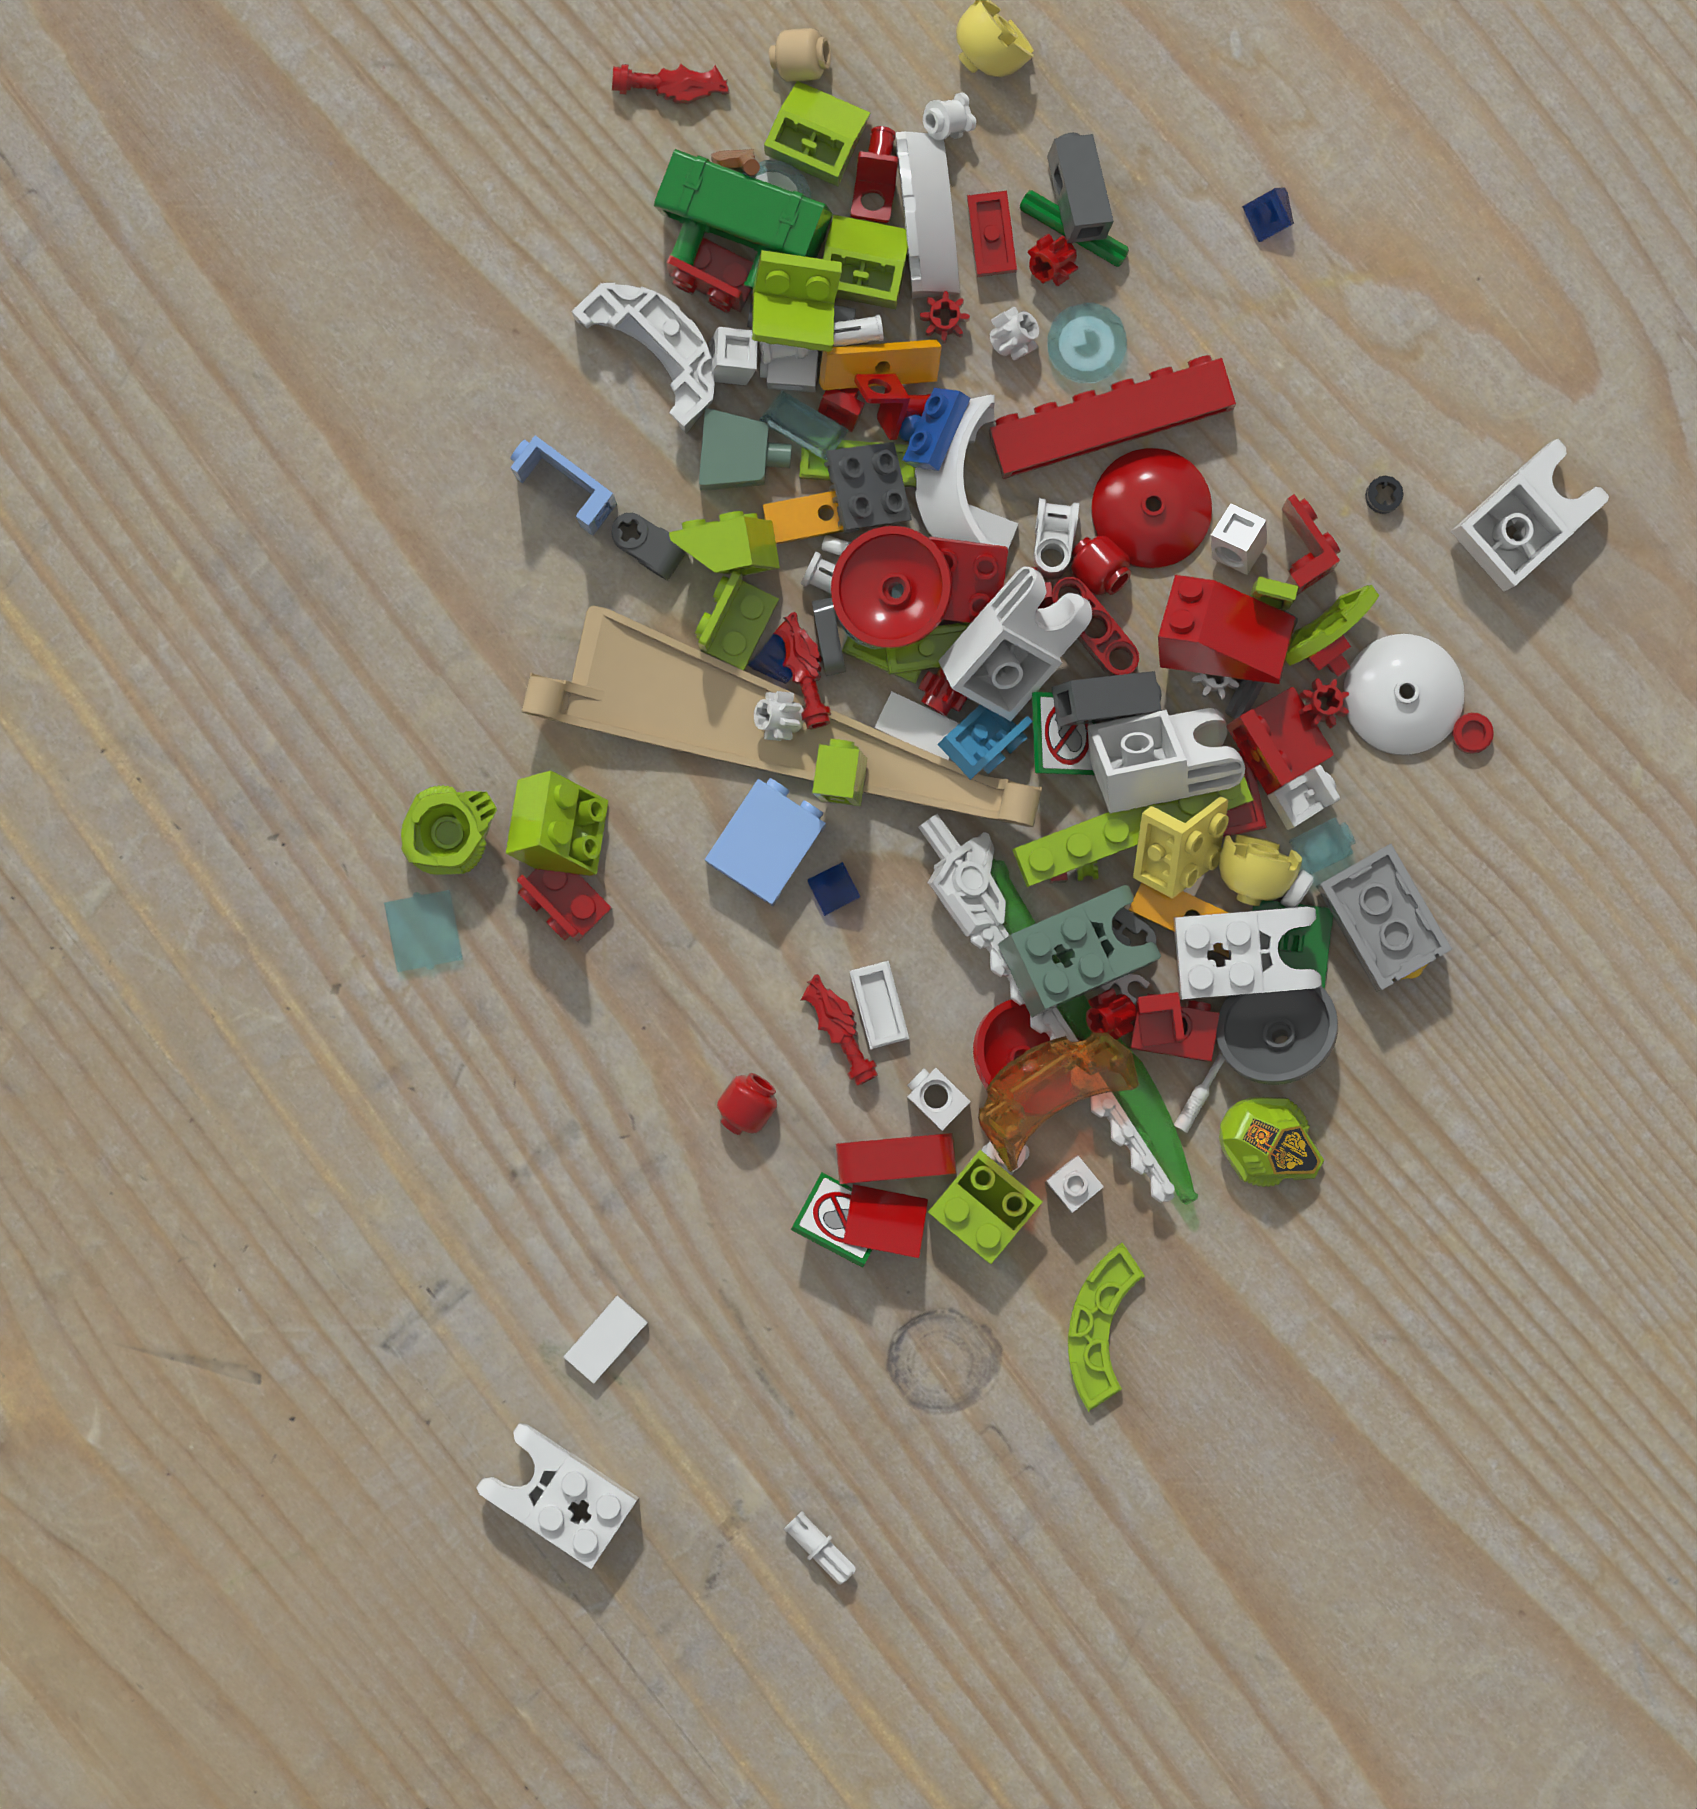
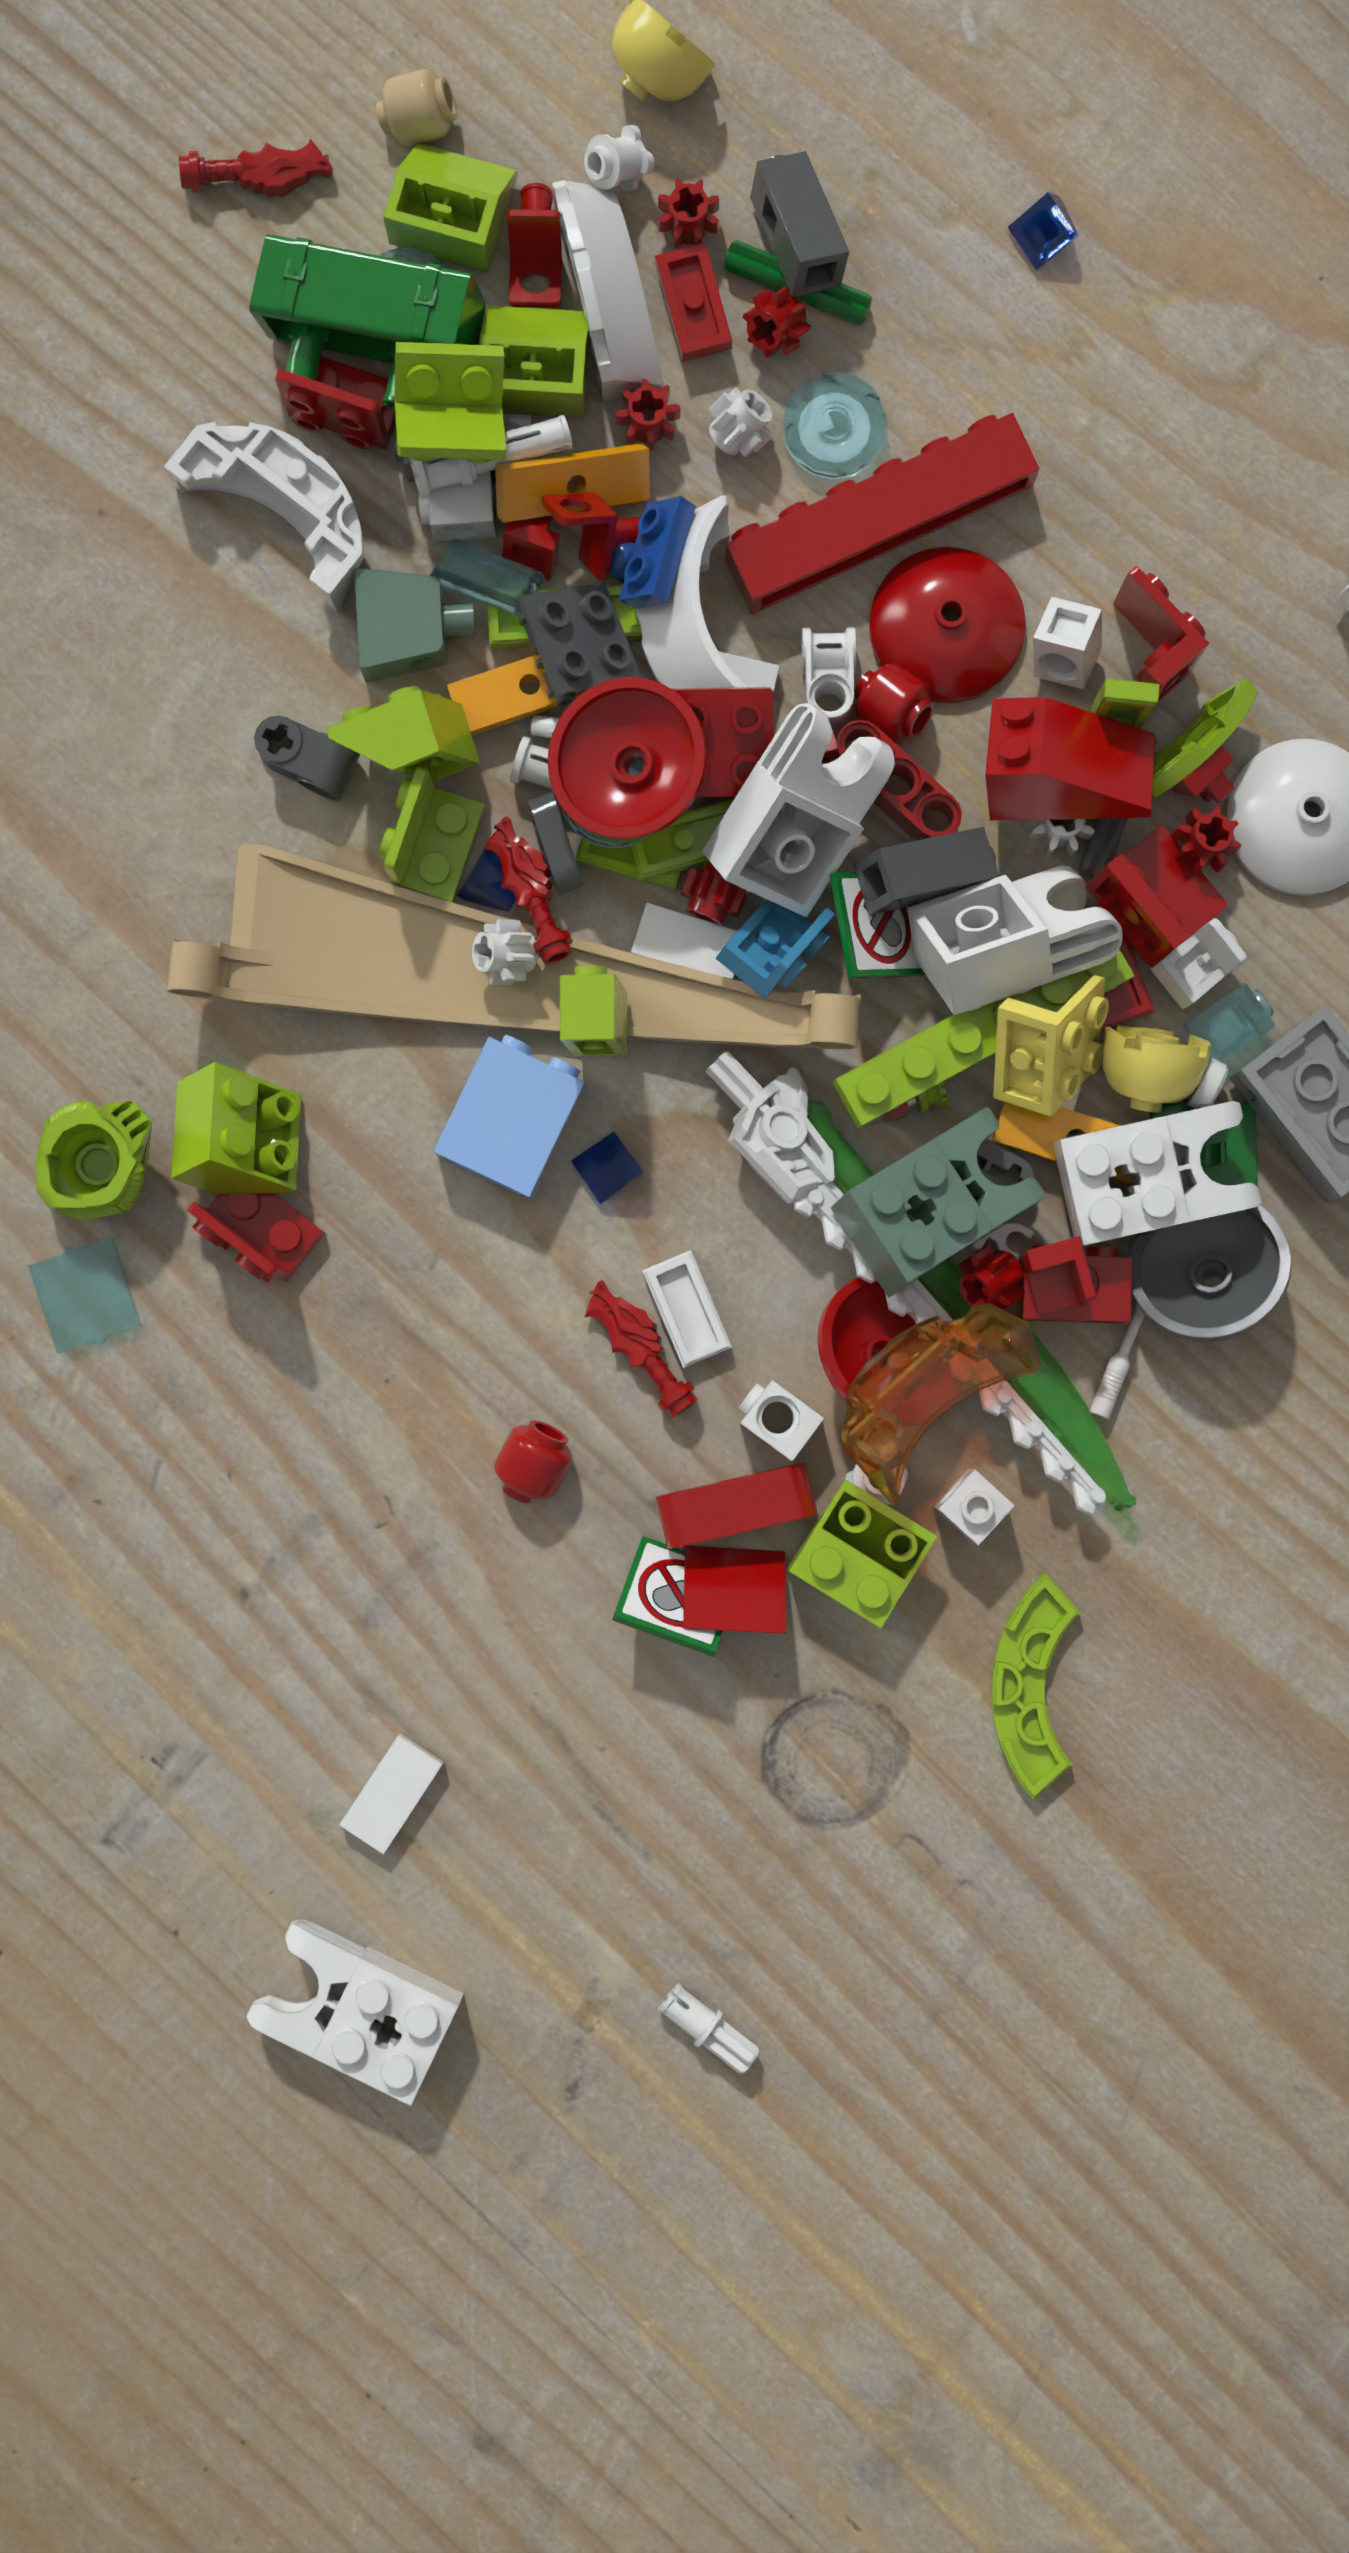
camera: 10 degrees left, 0 degrees up
(601, 500) = (231, 713): light blue panel -> none
(733, 355) = (382, 497): white brick -> none
(737, 158) = (364, 241): dark orange piece -> none
(1004, 157) = (690, 198): none -> red gear
(1269, 1141) = (1217, 1415): lime helmet -> none
(1396, 496) = (1258, 567): black bush -> none

